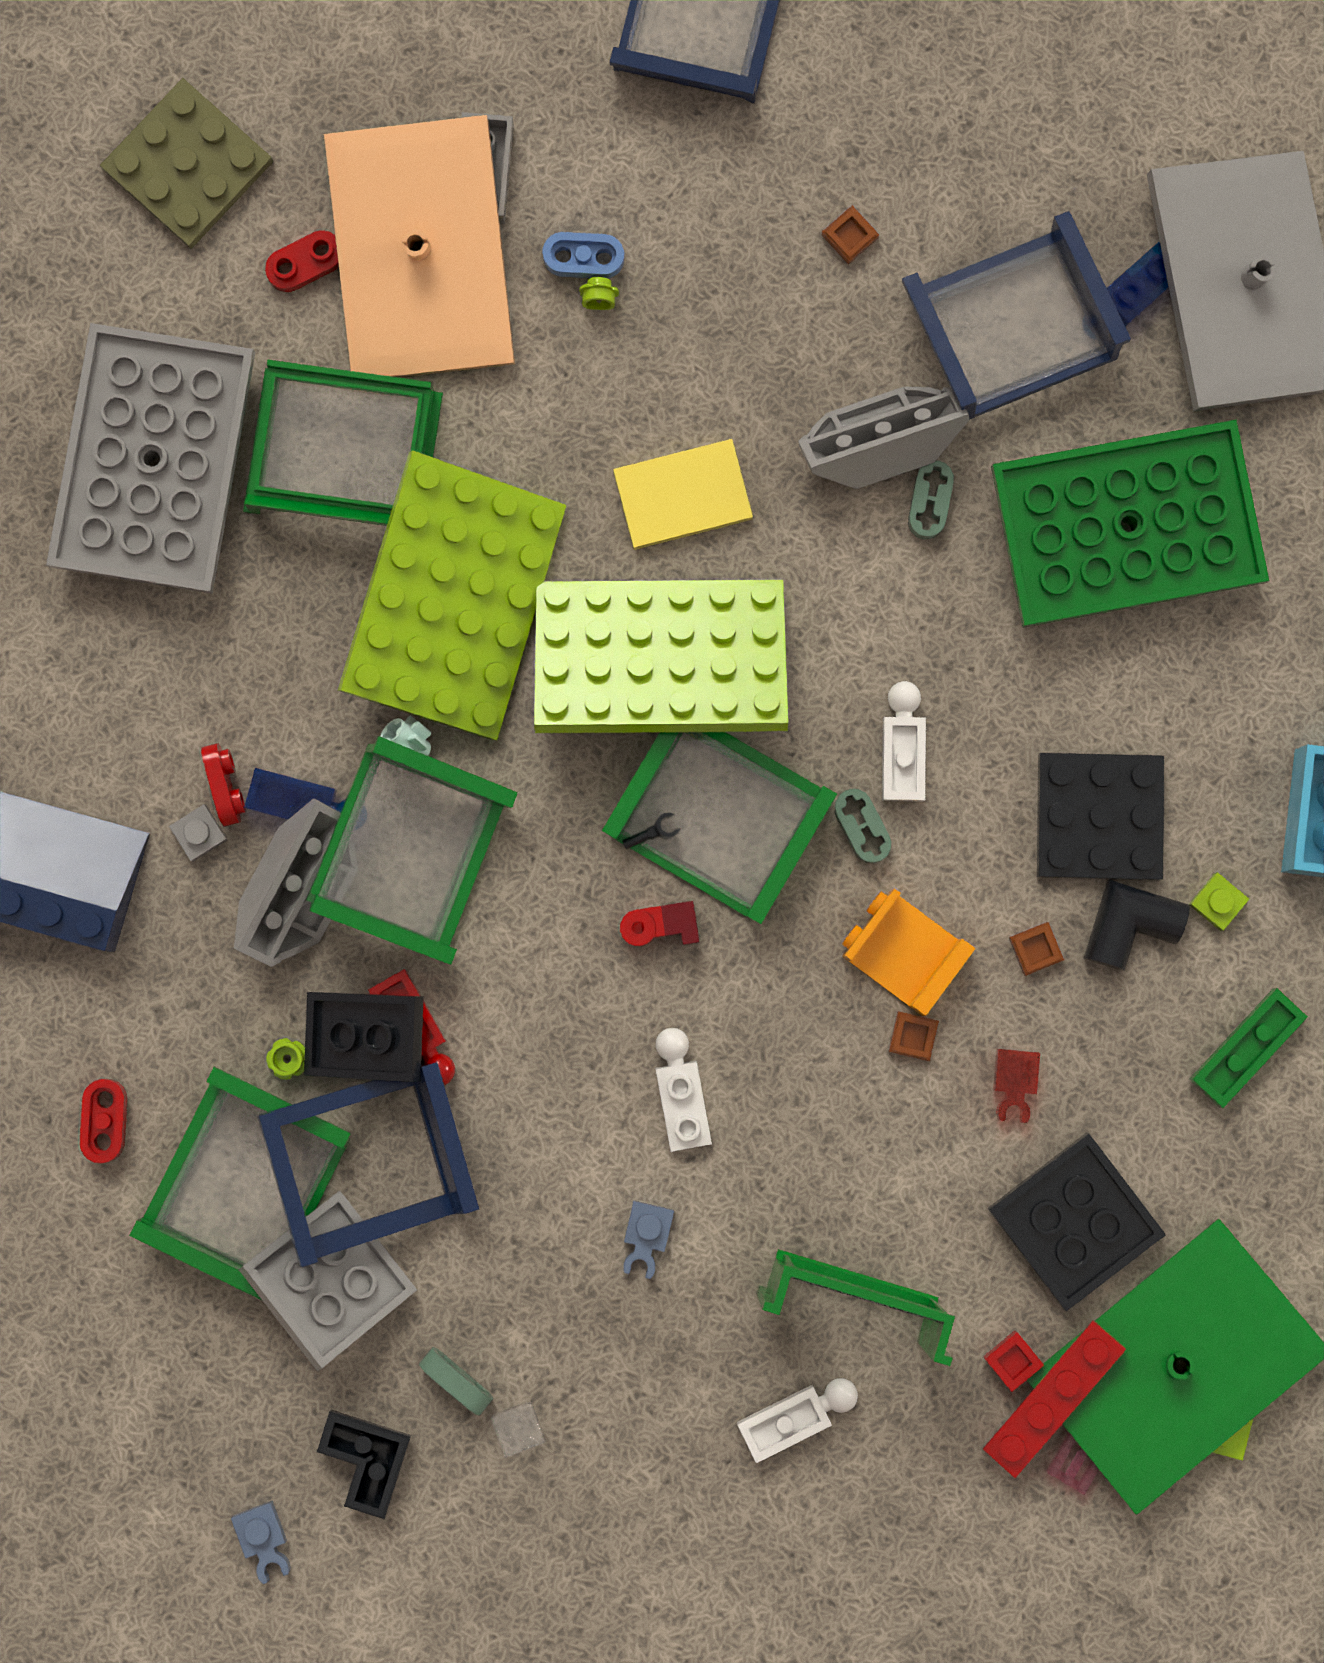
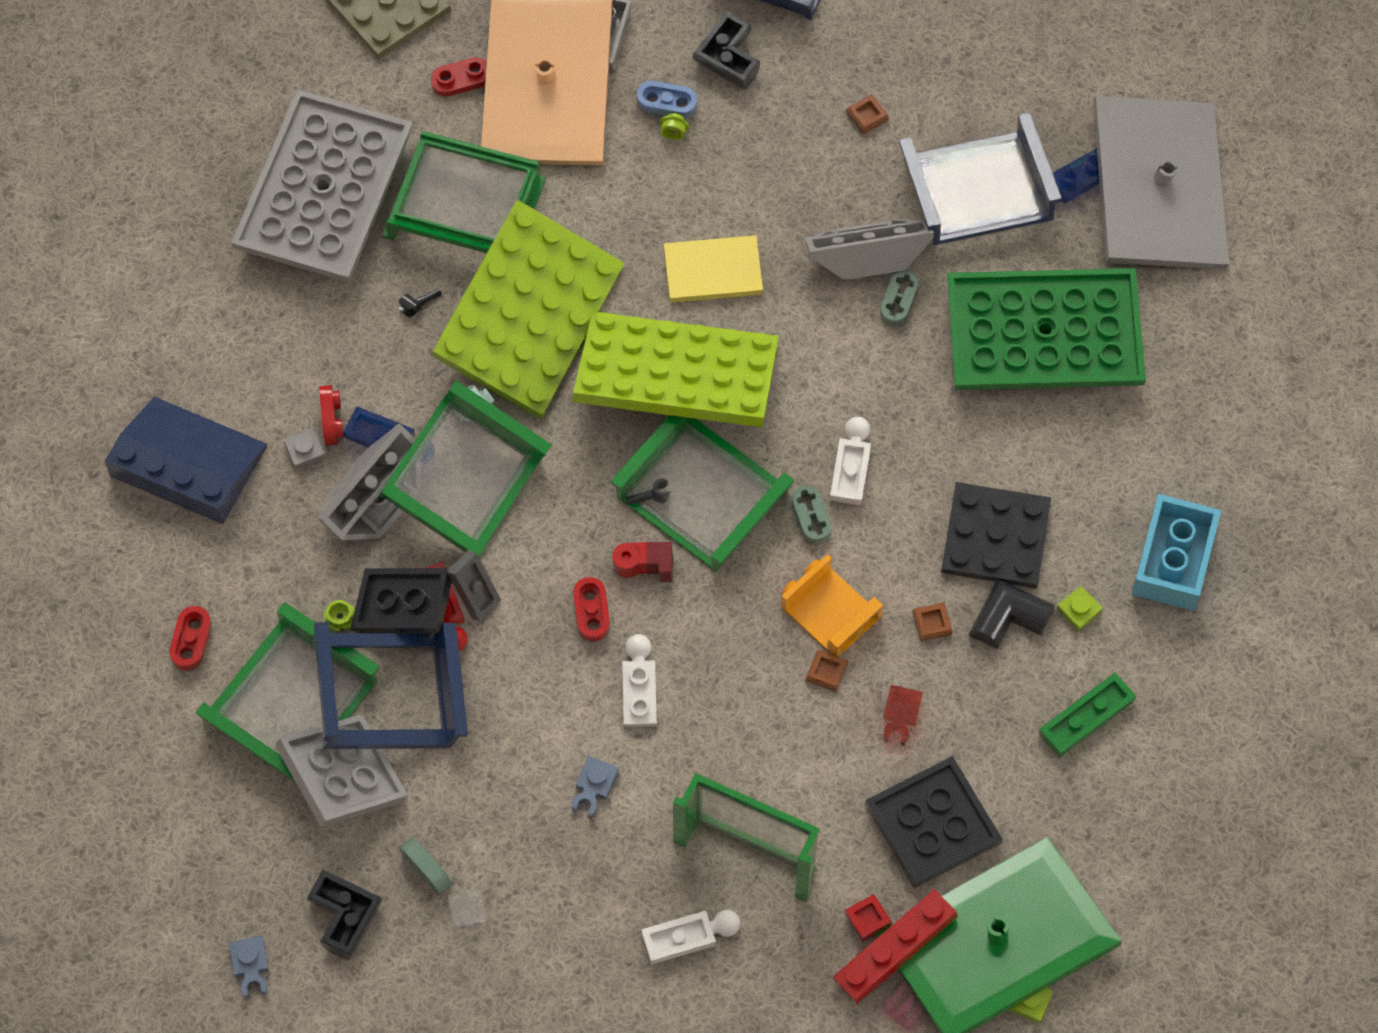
camera: 10 degrees right, 20 degrees down
(299, 609) = (411, 306): none -> black hand
(450, 1002) = (474, 585): none -> dark grey plate
(605, 1001) = (591, 610): none -> red plate
(642, 174) = (721, 52): none -> black brick

